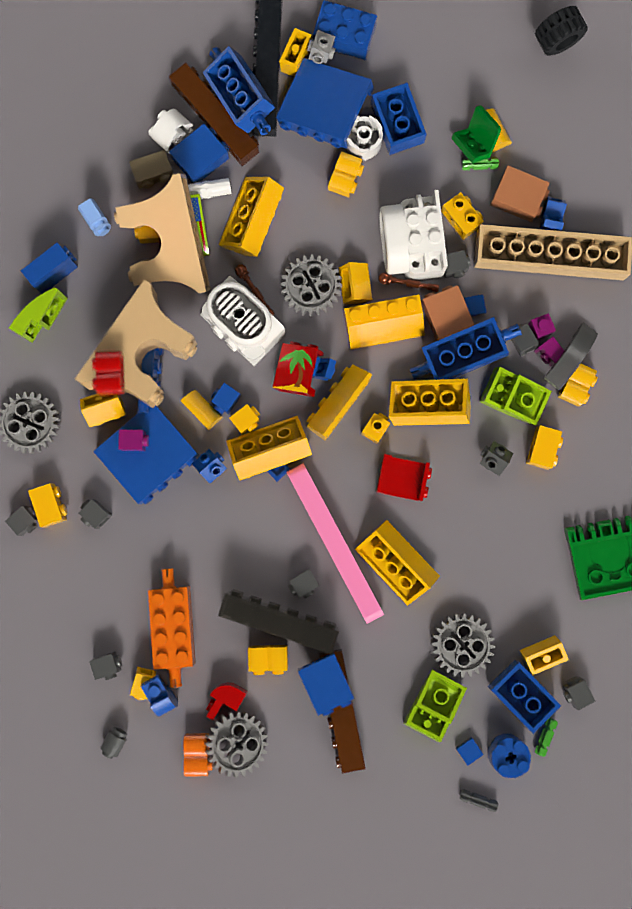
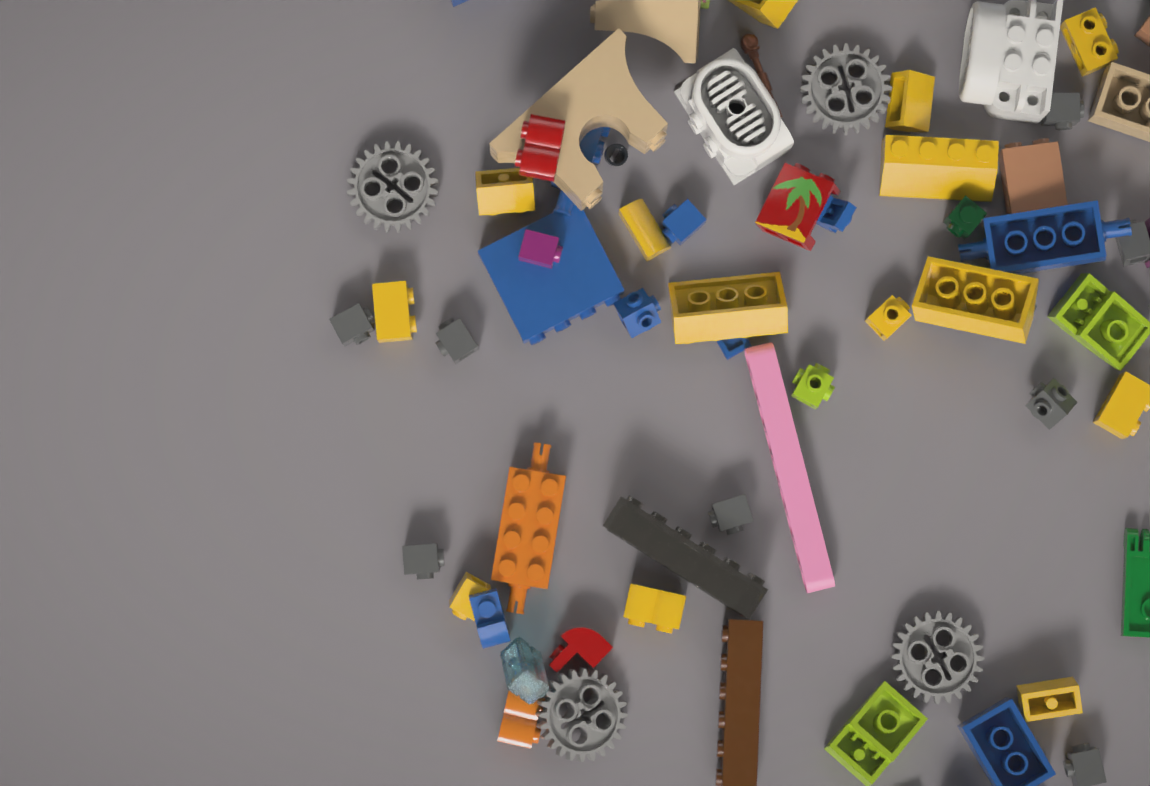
camera: 15 degrees right, 0 degrees up
(38, 314) = (445, 36): lime slope -> none
(113, 742) = (407, 670): dark grey brick -> none
(175, 366) = (620, 158): none -> black hinge
(190, 725) = (524, 671): none -> clear light blue brick
(246, 419) = (704, 259): yellow brick -> none
(326, 684) = (731, 660): blue brick -> none
(331, 490) = (813, 396): none -> lime brick
(339, 401) = (845, 266): yellow slope -> none
(385, 278) = (955, 105): copper piece -> none
(397, 562) = (872, 517): yellow slope -> none
(403, 478) = (910, 400): red panel -> none
(409, 350) = (964, 218): none -> dark green brick
(476, 305) = (1076, 176): blue tile -> none

